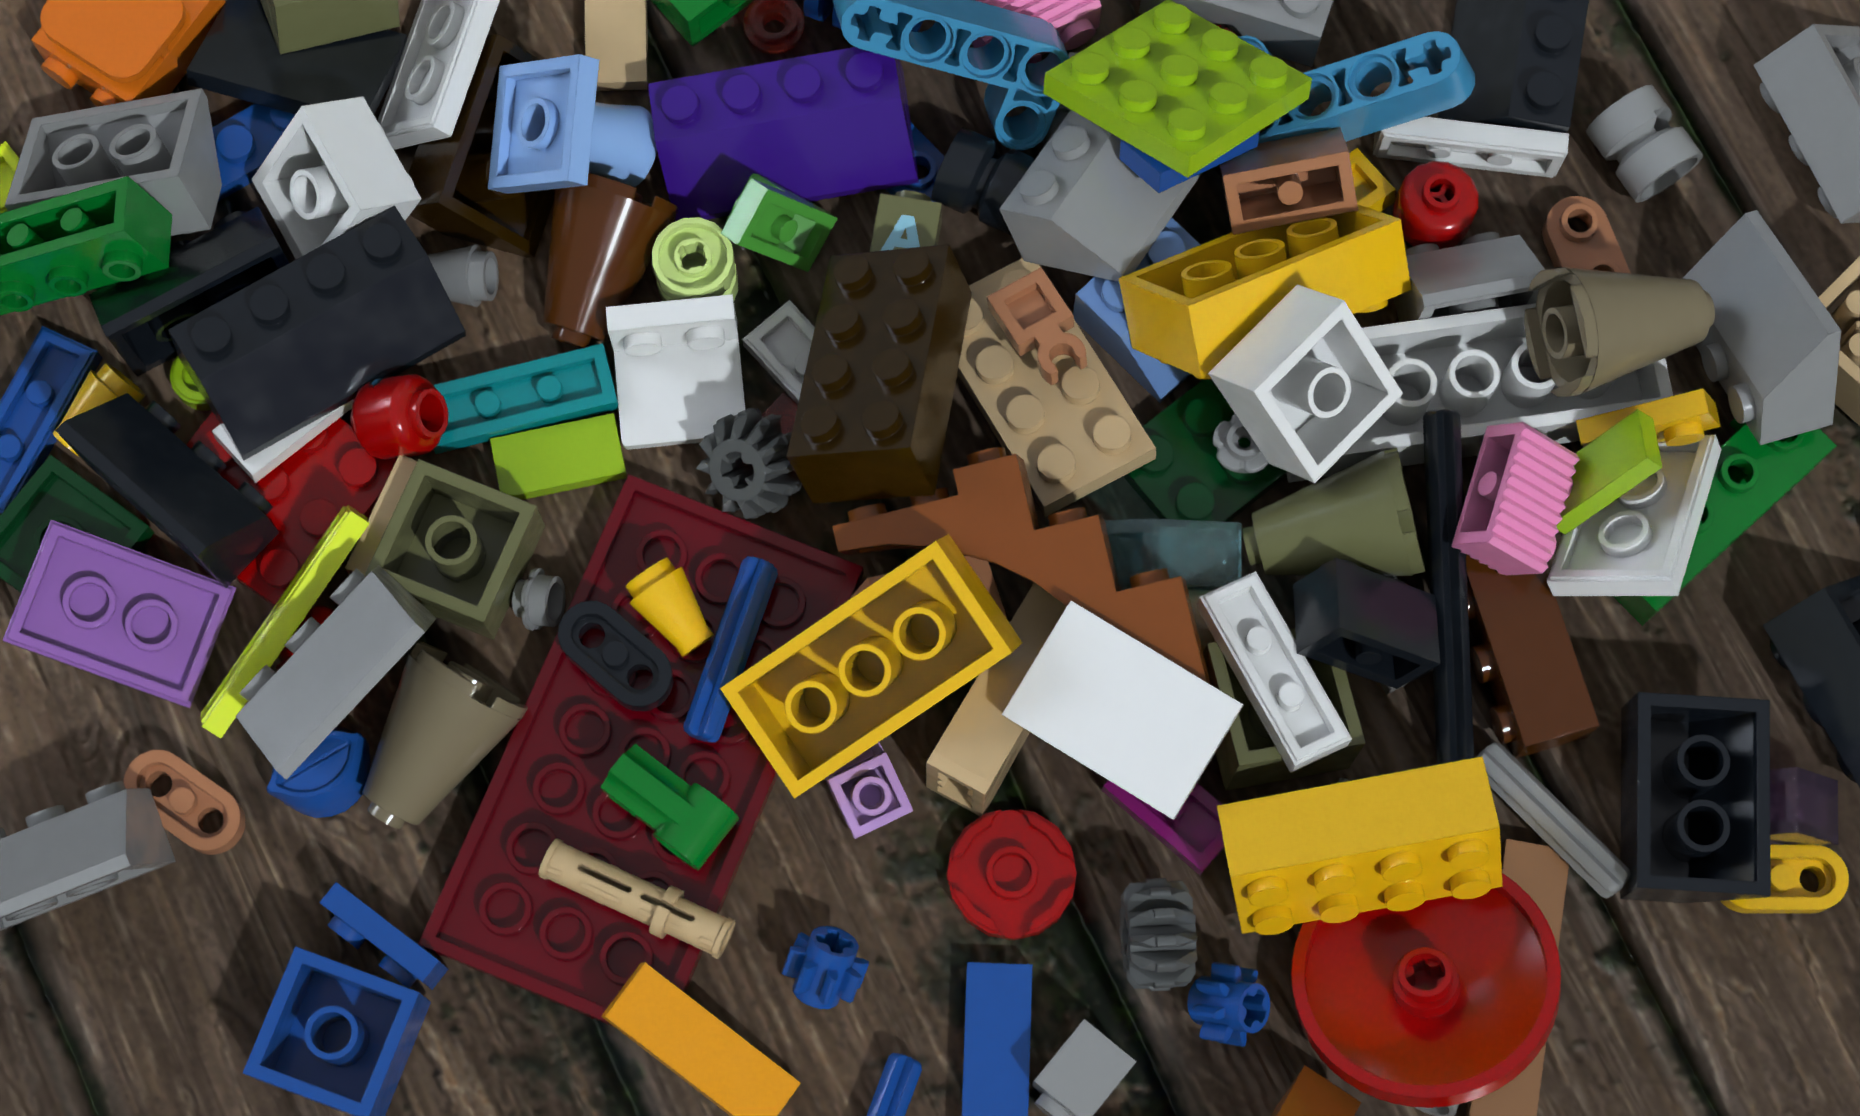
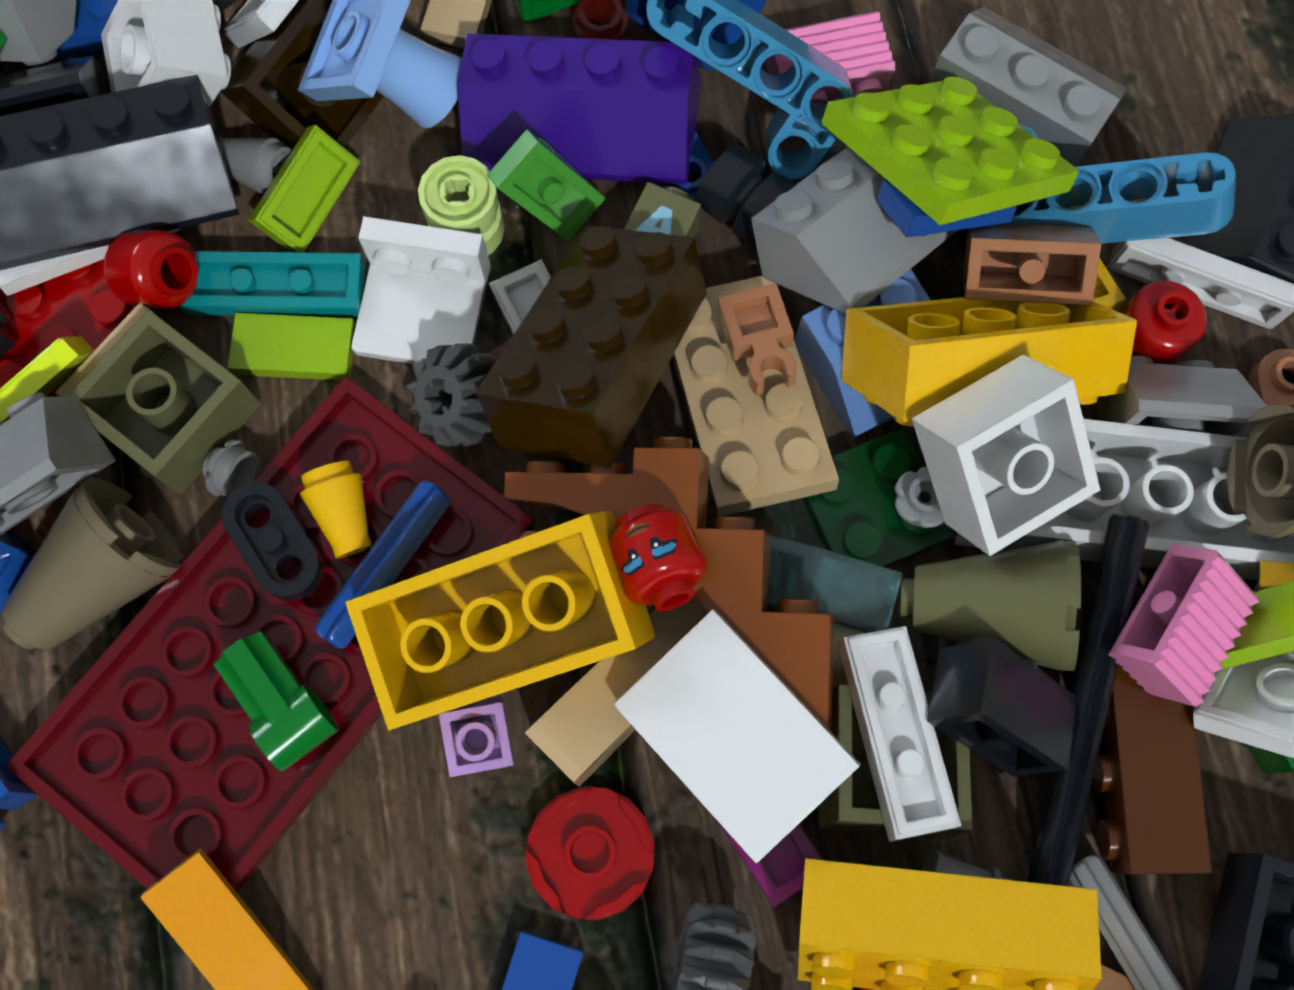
camera: 15 degrees right, 0 degrees up
(516, 293) = (304, 190): none -> lime tile
(598, 254) = (378, 168): reddish brown cone -> none
(659, 908) = (271, 836): tan pin -> none
(825, 967) = (379, 900): blue gear -> none
(1006, 564) = (657, 556): none -> red head

